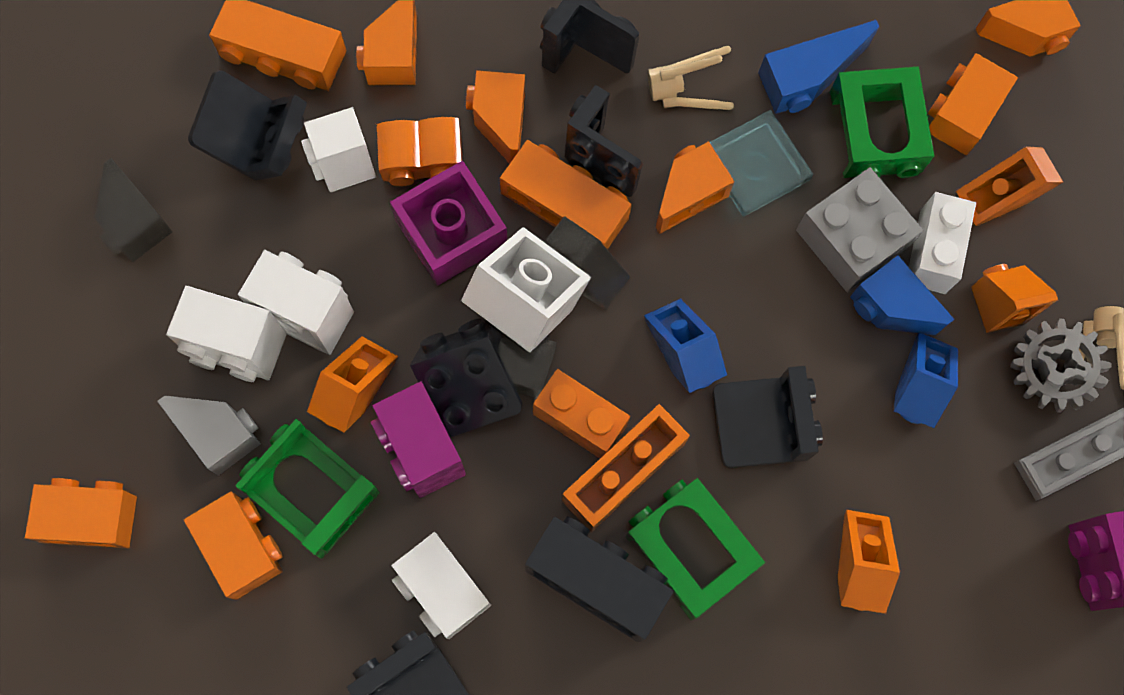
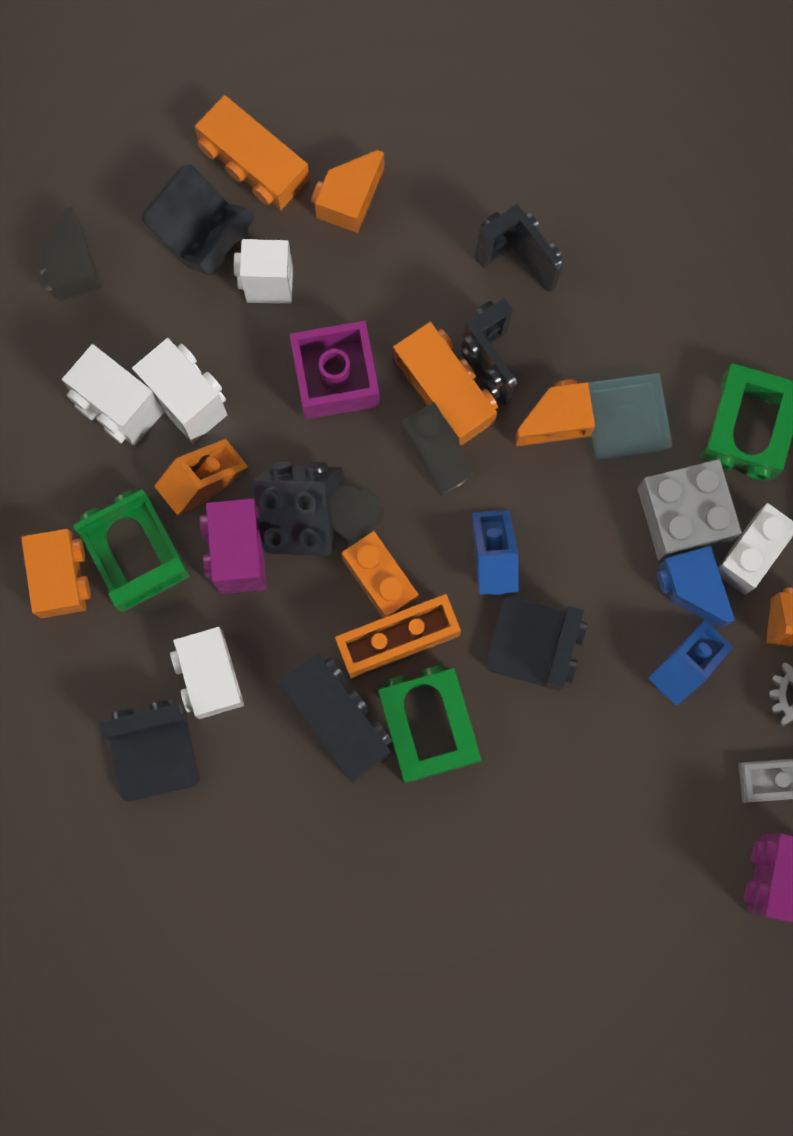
camera: 25 degrees right, 5 degrees up
(212, 430) = (72, 471): light grey slope -> none
(417, 148) = (335, 294): orange brick -> none
(498, 109) = (419, 283): orange slope -> none
(525, 289) = (374, 453): white brick -> none
(668, 81) = (578, 313): tan plant -> none
(803, 71) = (705, 349): blue slope -> none
(867, 562) = (570, 794): orange slope -> none

